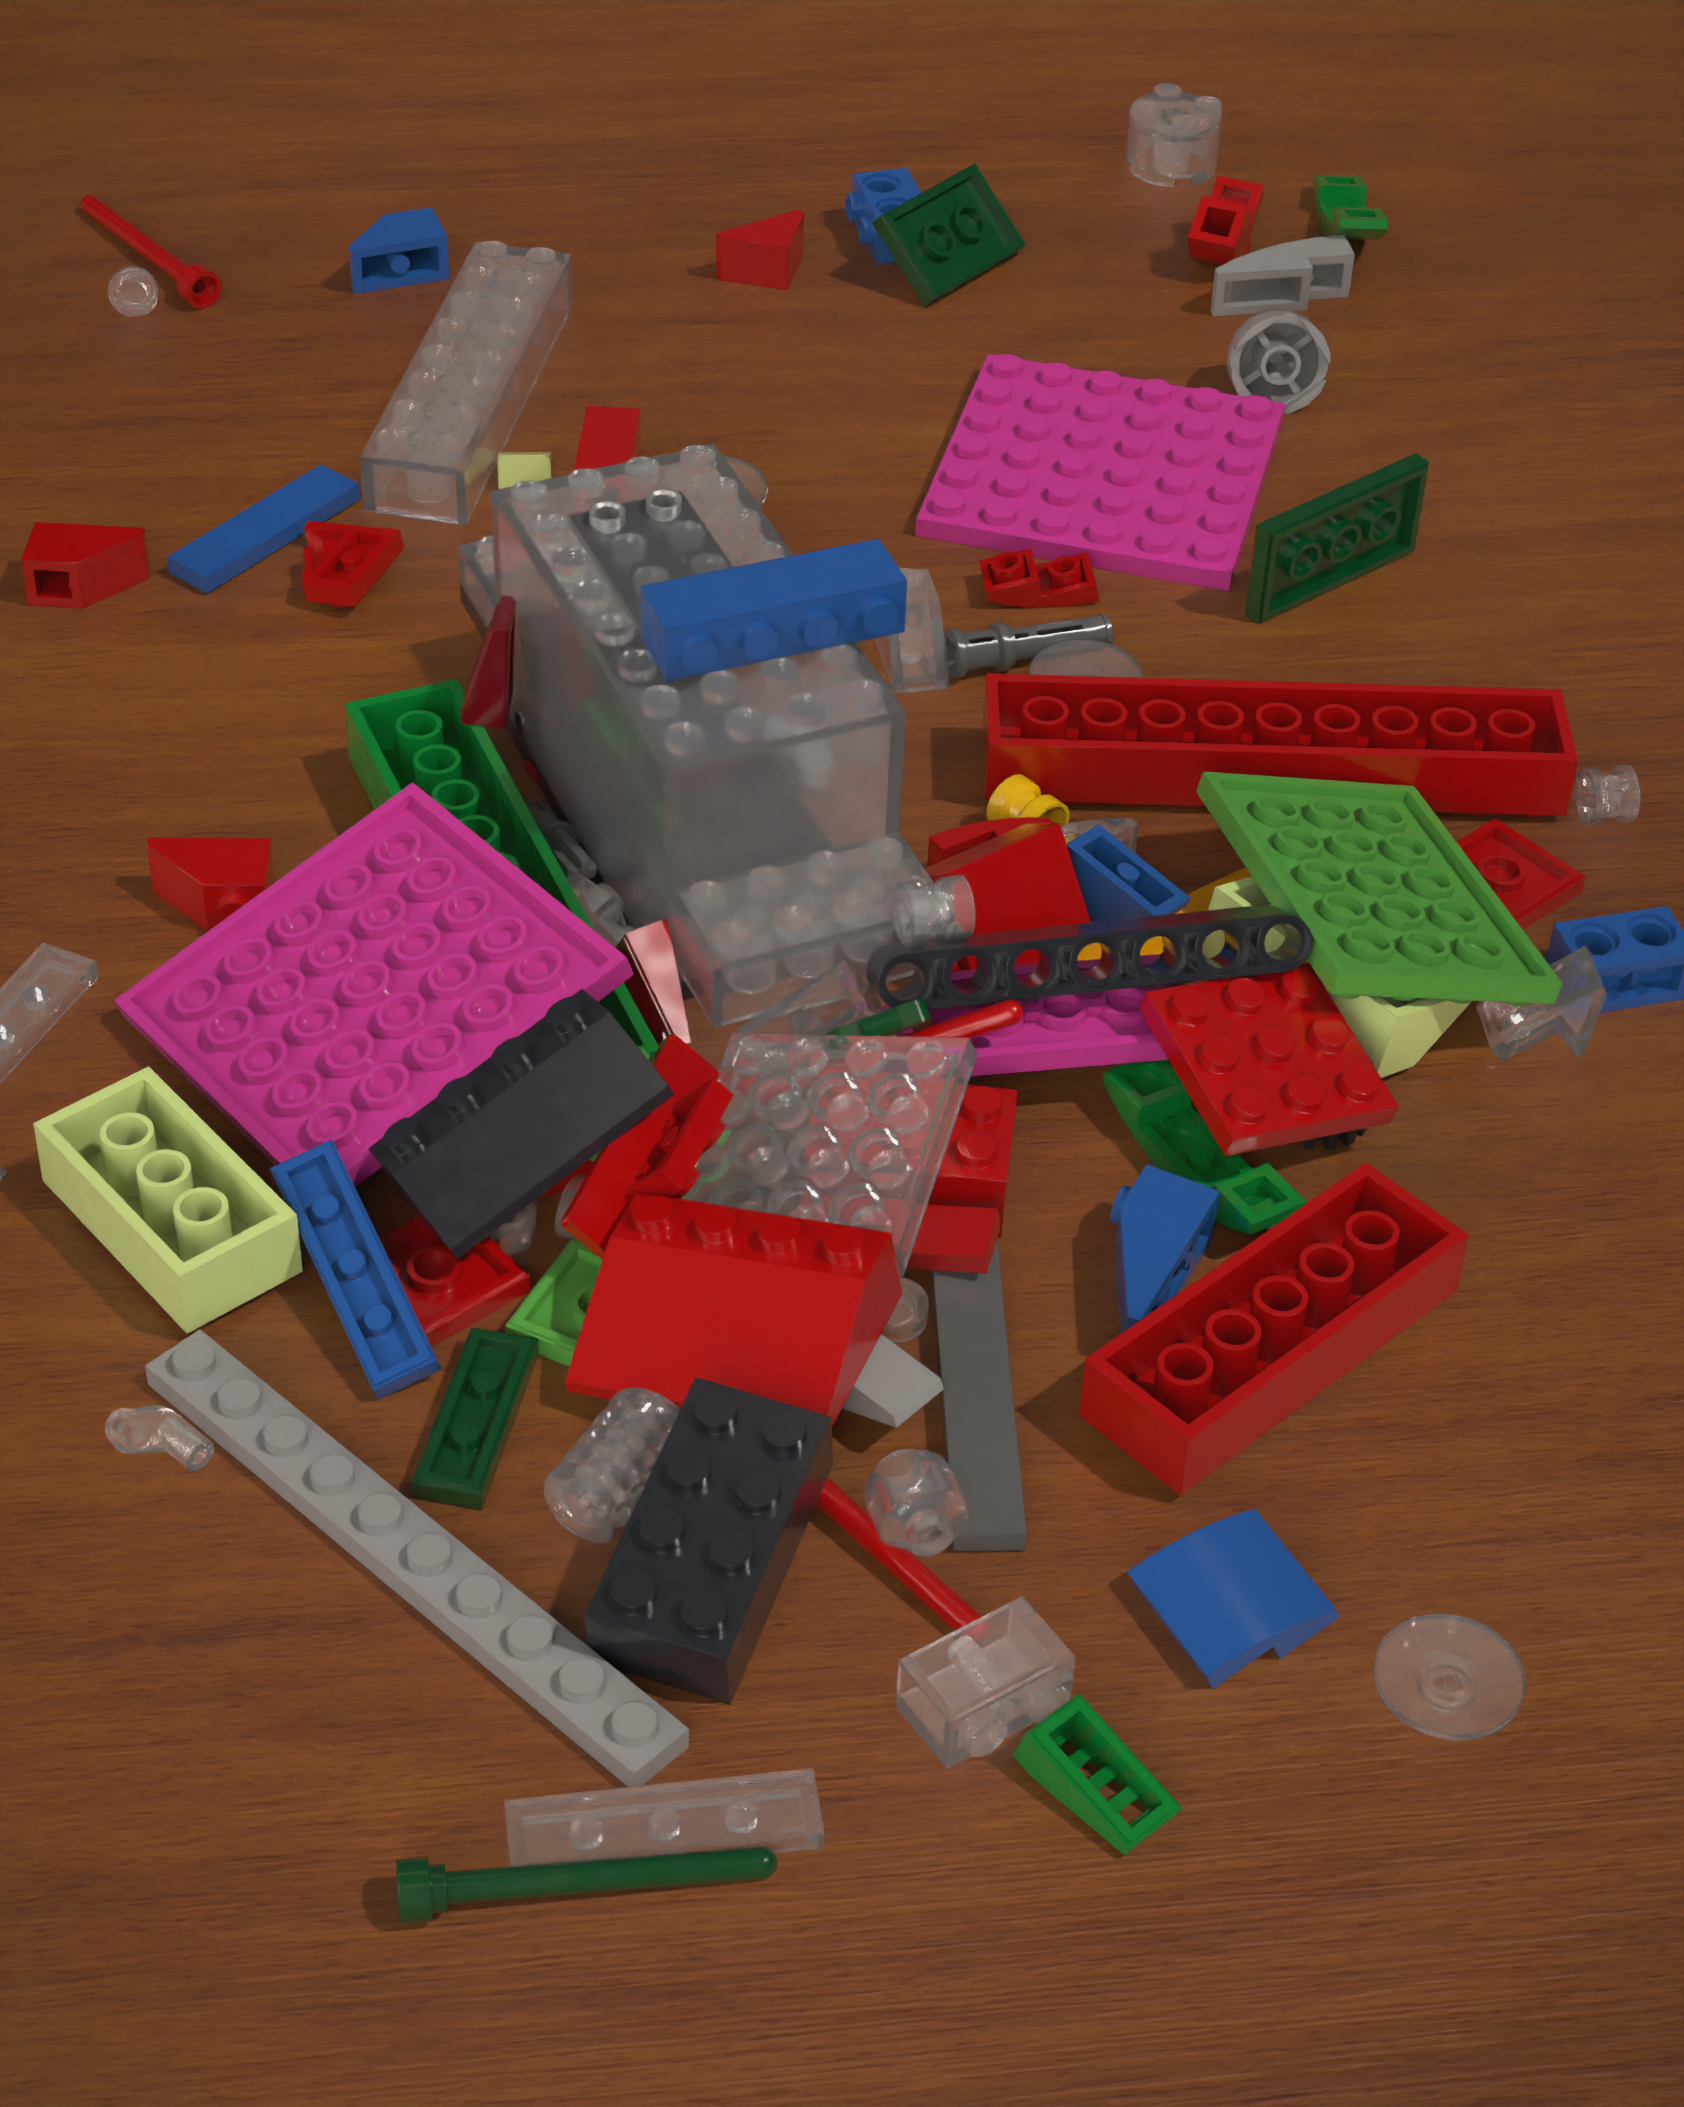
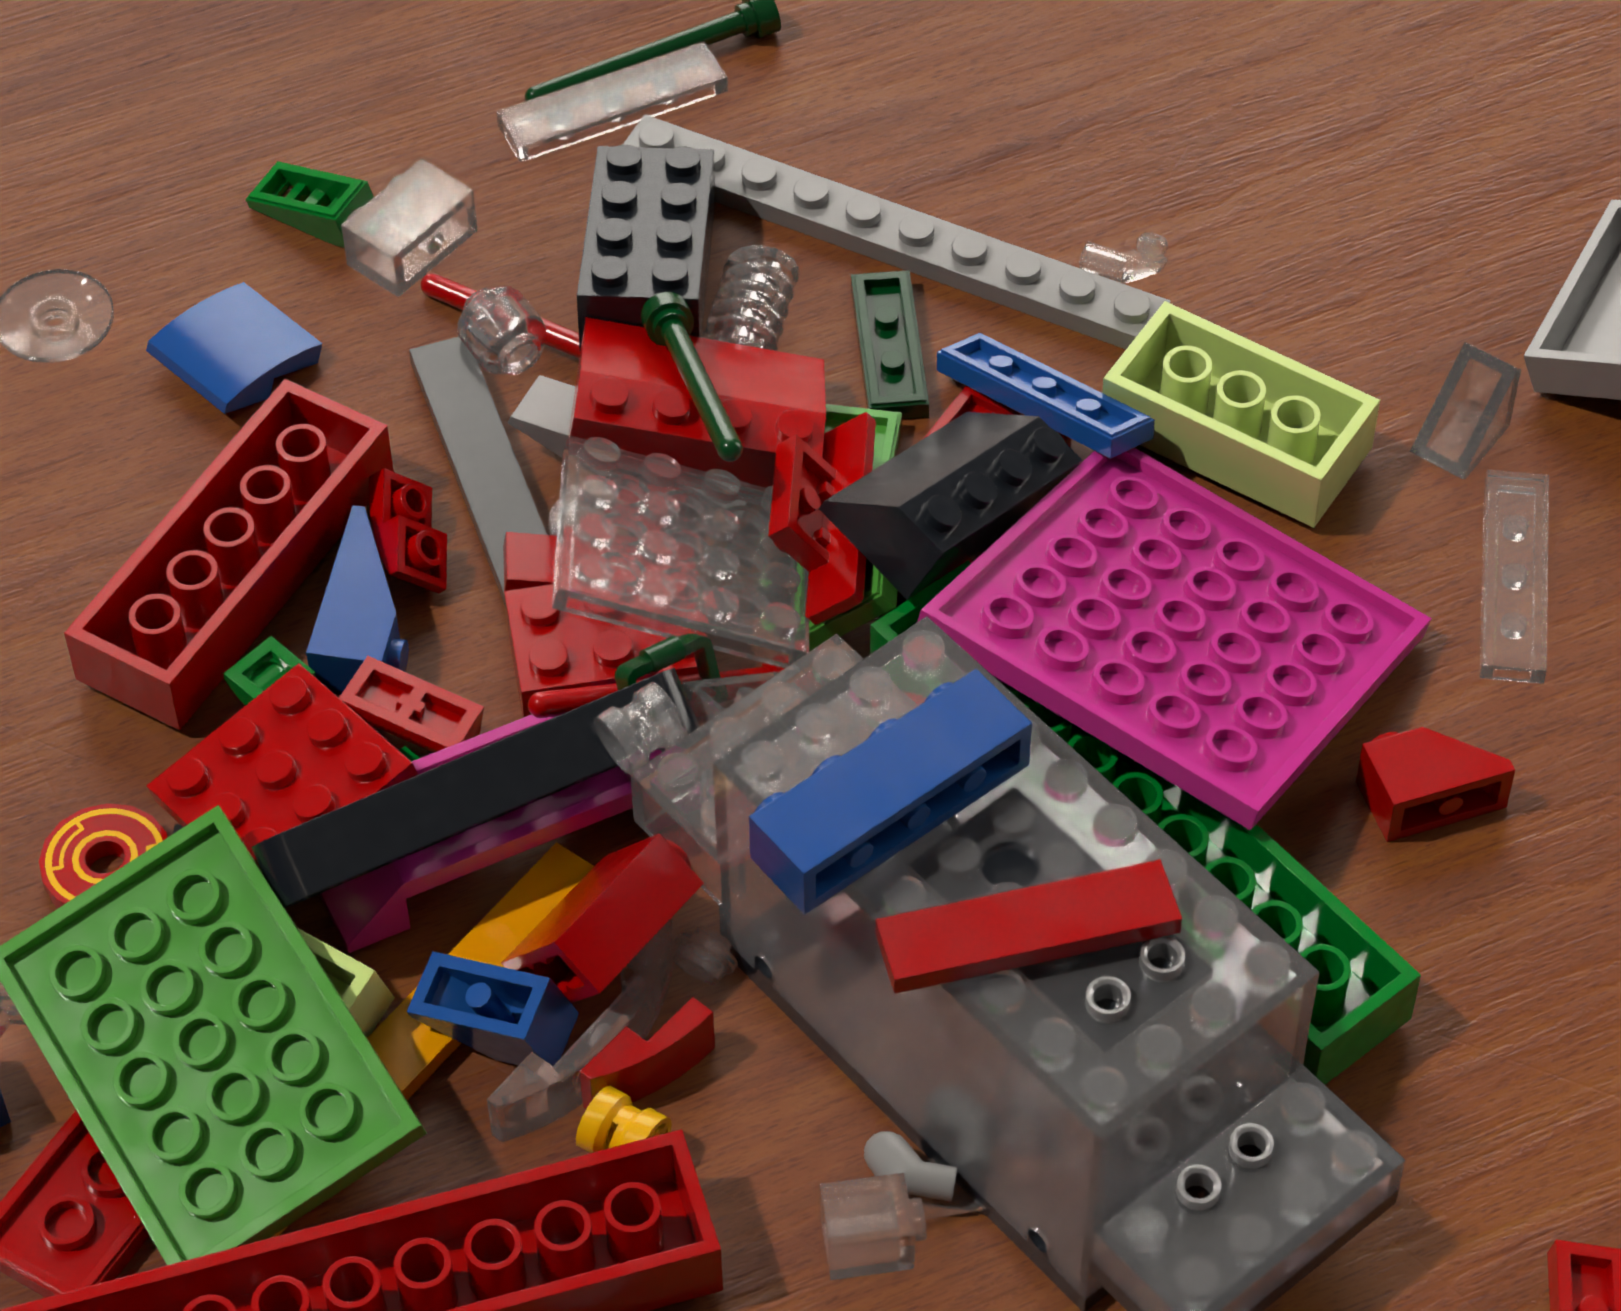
camera: 165 degrees right, 10 degrees up
(701, 529) = (1027, 926): none -> red tile
(738, 1357) = (670, 324): none -> dark green piece
(1083, 1313) = (405, 532): none -> red slope
(1127, 1121) = (411, 707): none -> hinge
(1447, 1095) = (90, 836): none -> red tile

